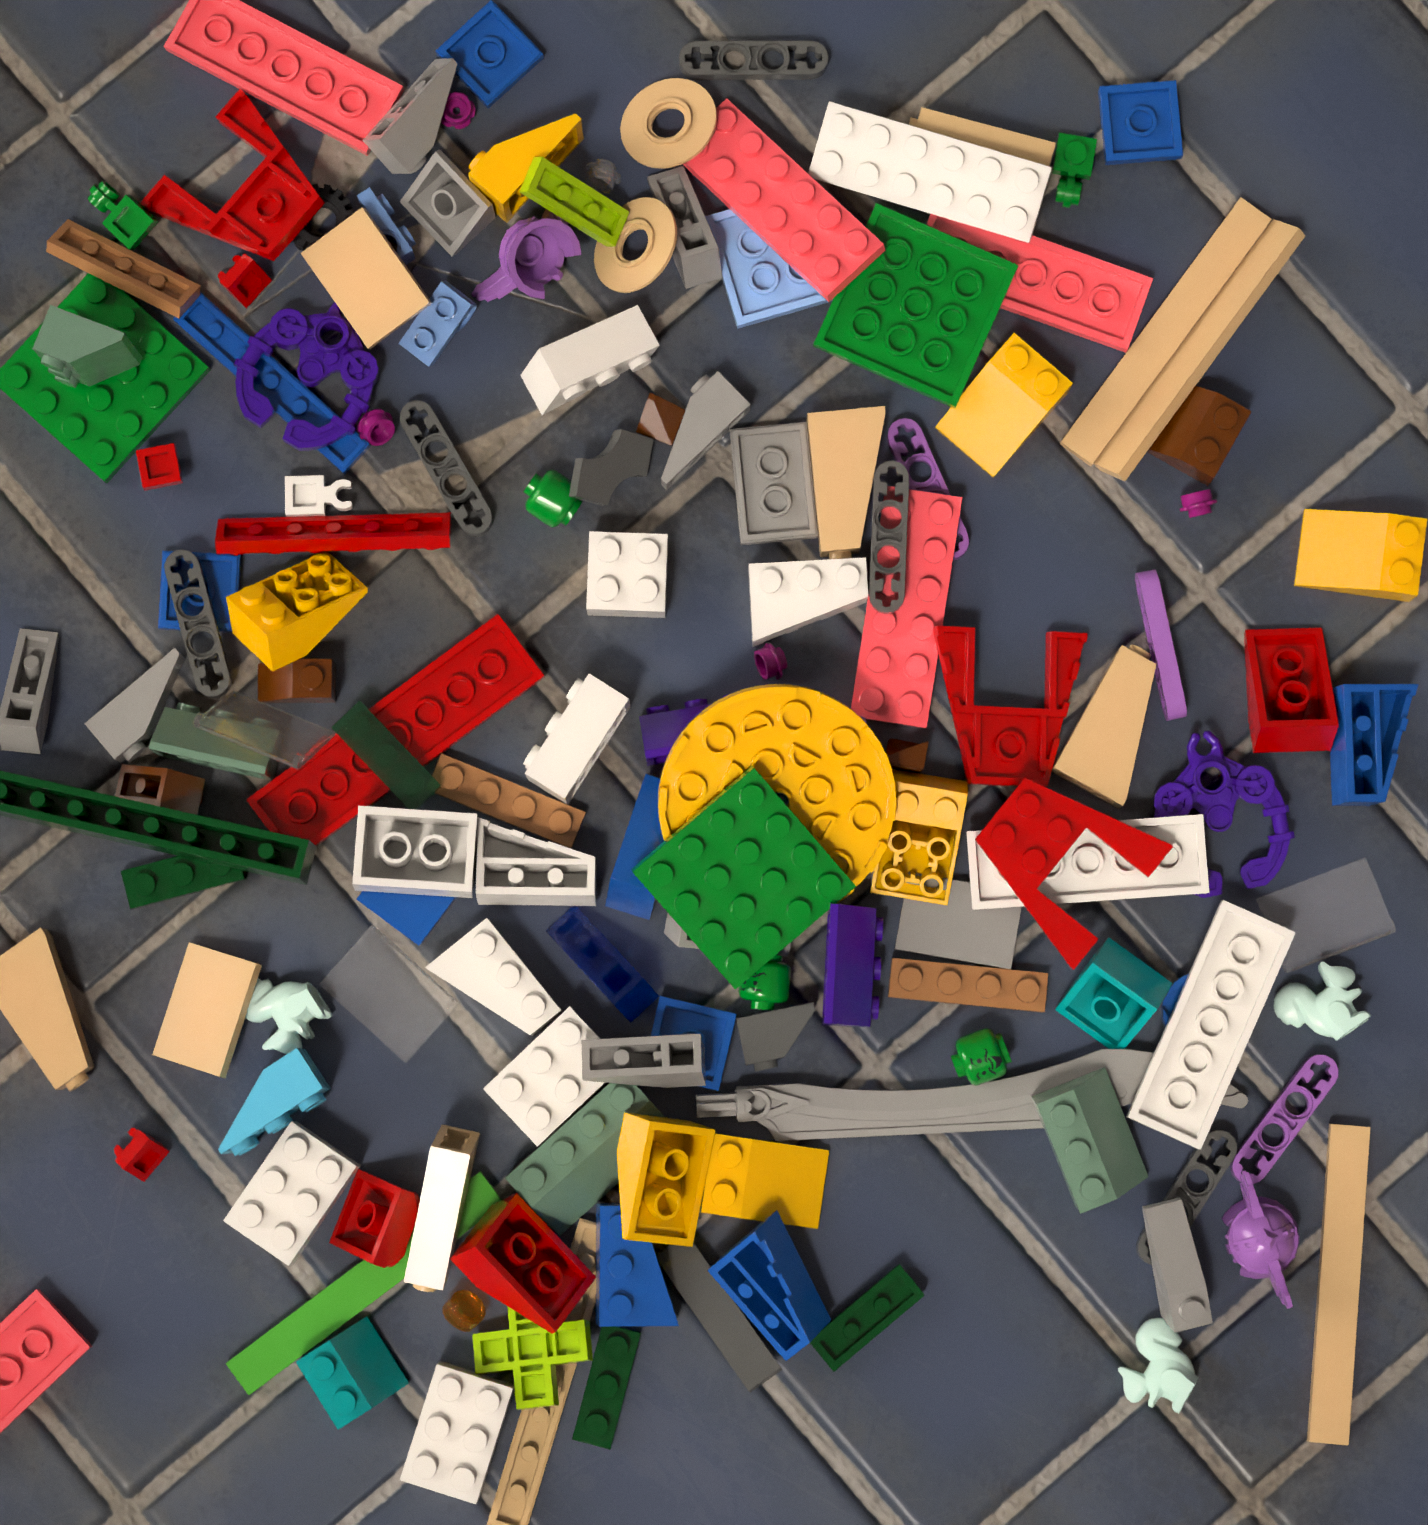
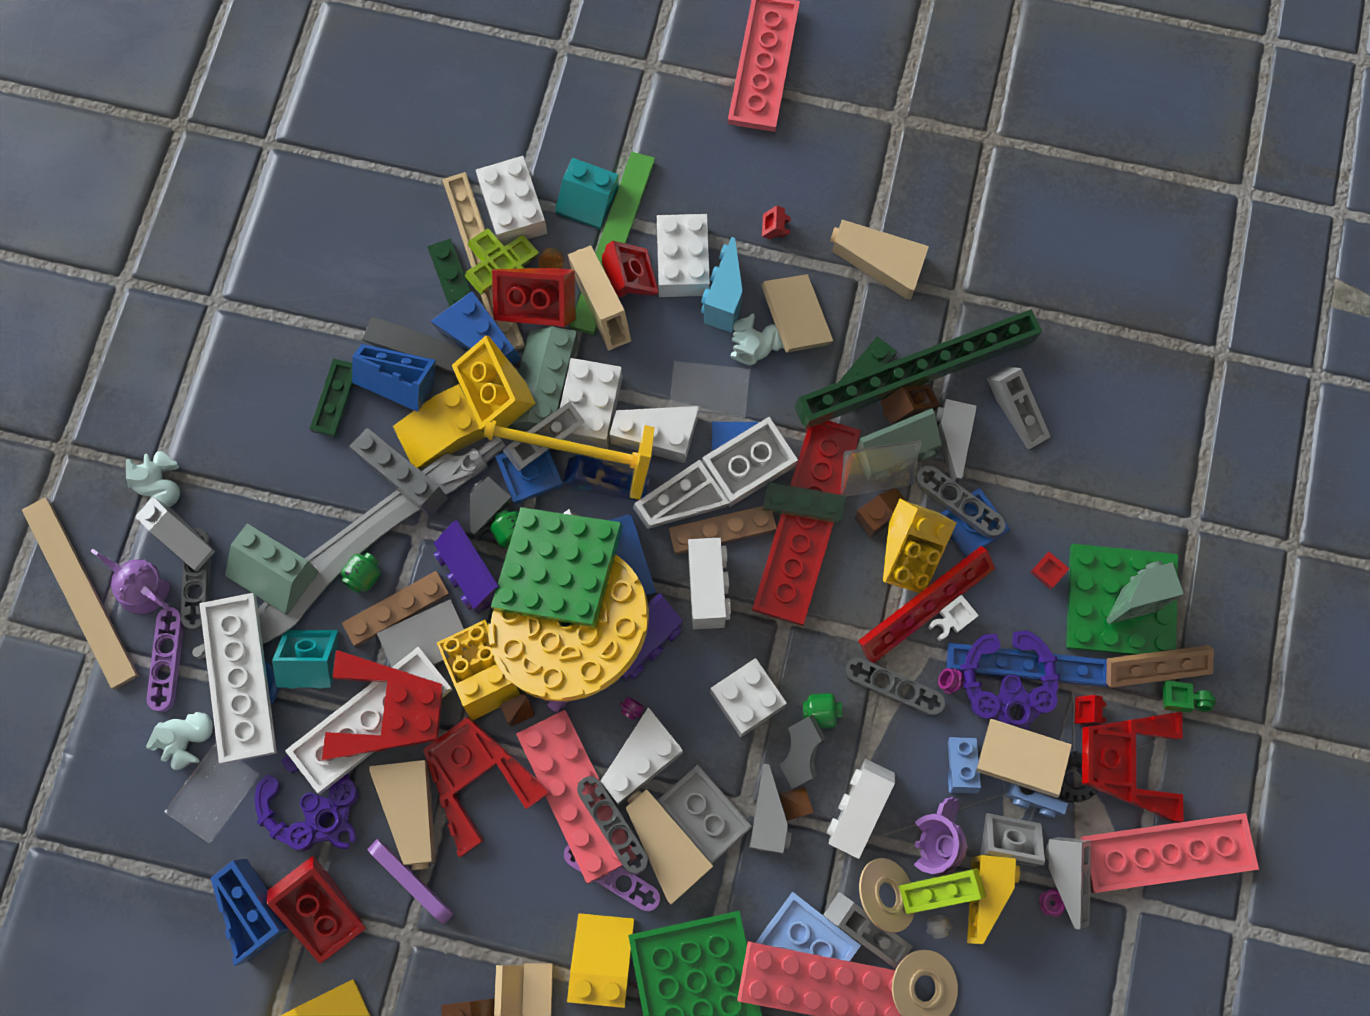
camera: 145 degrees right, 10 degrees down
(490, 54) = (1060, 954): blue tile -> none
(551, 940) = (637, 461): none -> yellow tile
(852, 1150) = (399, 472): none -> dark grey brick
(1197, 503) = (444, 986): magenta plate -> none

